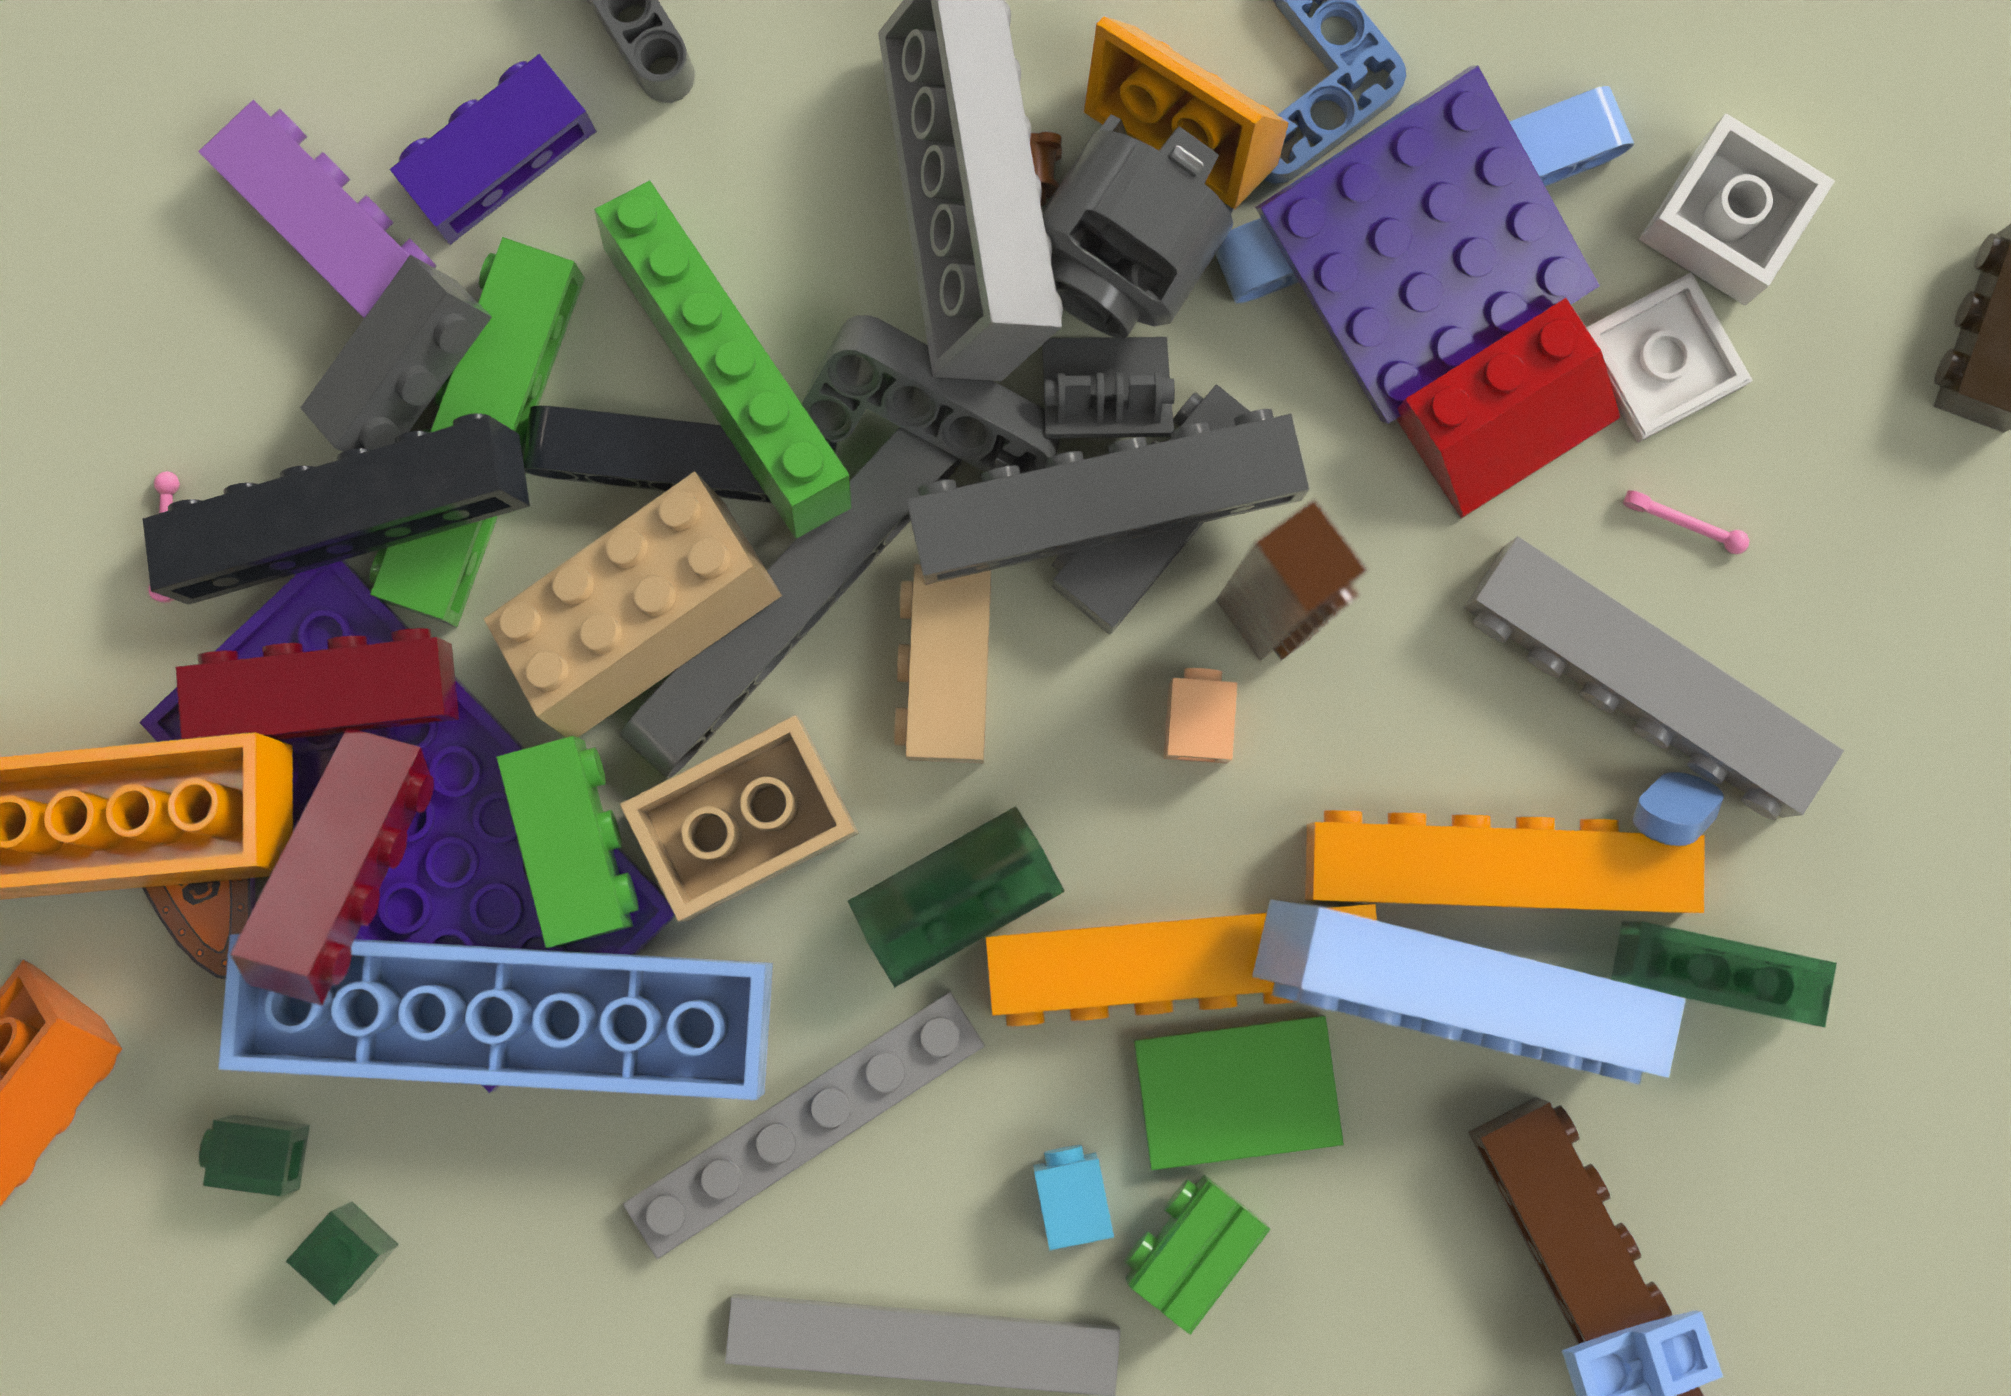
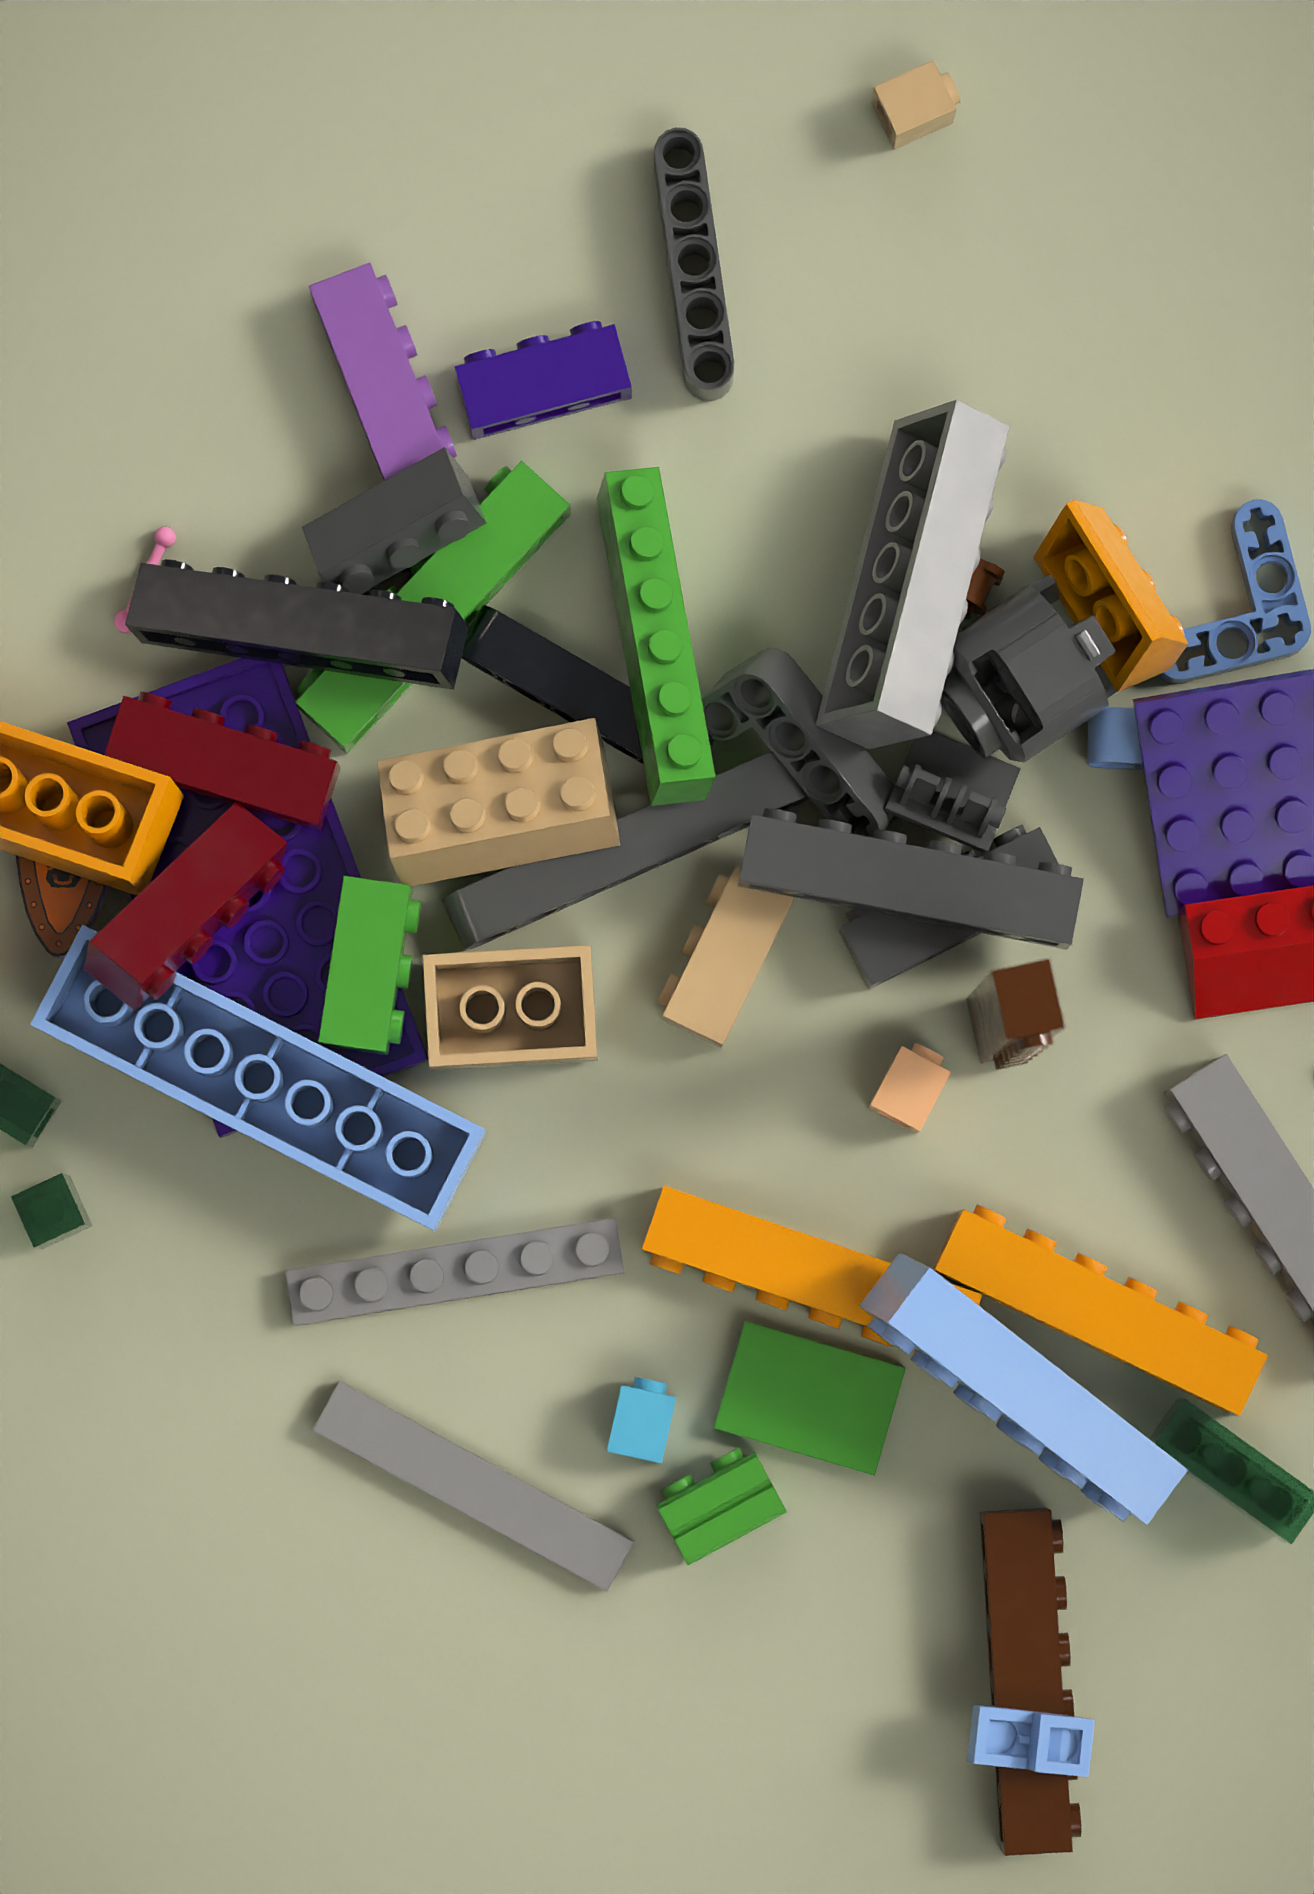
camera: 20 degrees right, 0 degrees up
(955, 896) = (654, 1143): clear green brick -> none
(1677, 808) = (1257, 1325): medium blue tile -> none

